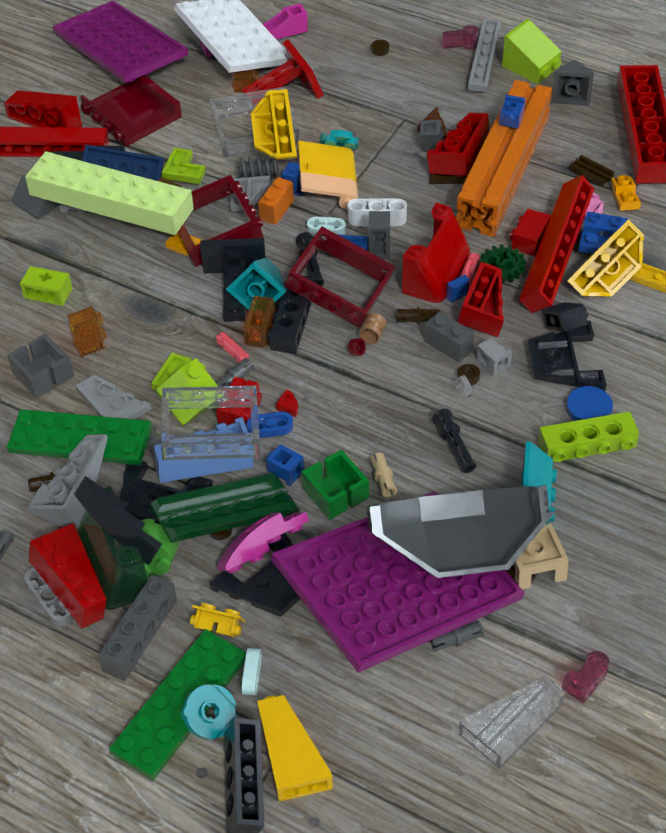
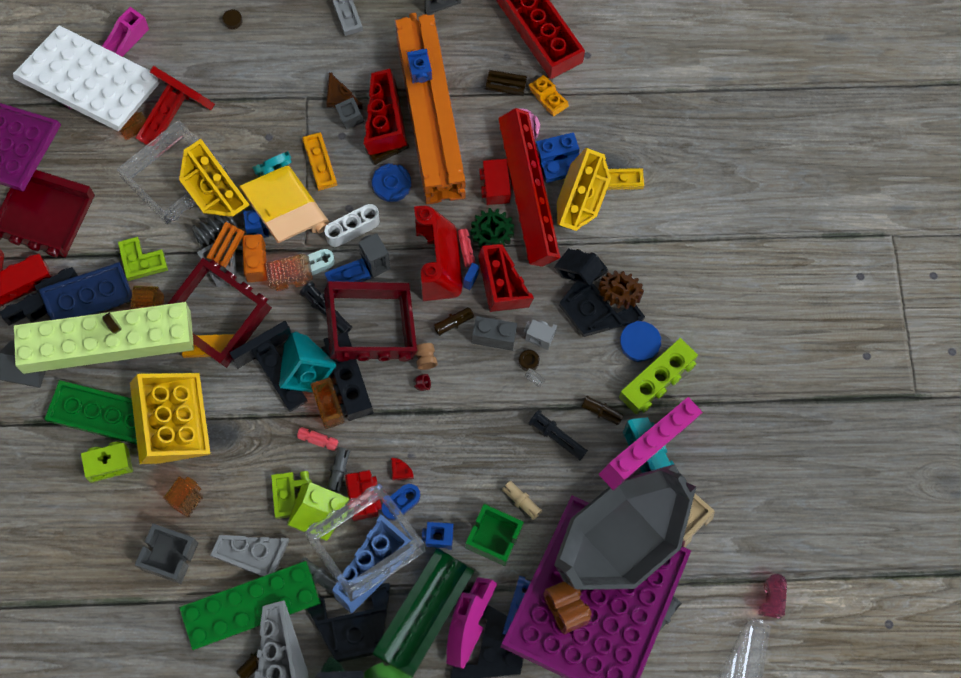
camera: 35 degrees left, 20 degrees up
(79, 258) = (92, 411): none -> green plate
(118, 271) = (169, 417): none -> yellow slope
(119, 173) = (111, 323): none -> dark brown tile
(258, 177) = (219, 240): none -> orange tile
(296, 217) = (288, 272): none -> clear orange brick
(359, 556) = (567, 607): none -> dark orange brick
(382, 162) = (319, 161): none -> light orange tile
(431, 194) = (391, 182): none -> blue tile
(499, 468) = (650, 443): none -> dark pink arch
(511, 439) = (602, 410): none -> dark brown axle
(595, 353) = (620, 289): none -> reddish brown gear

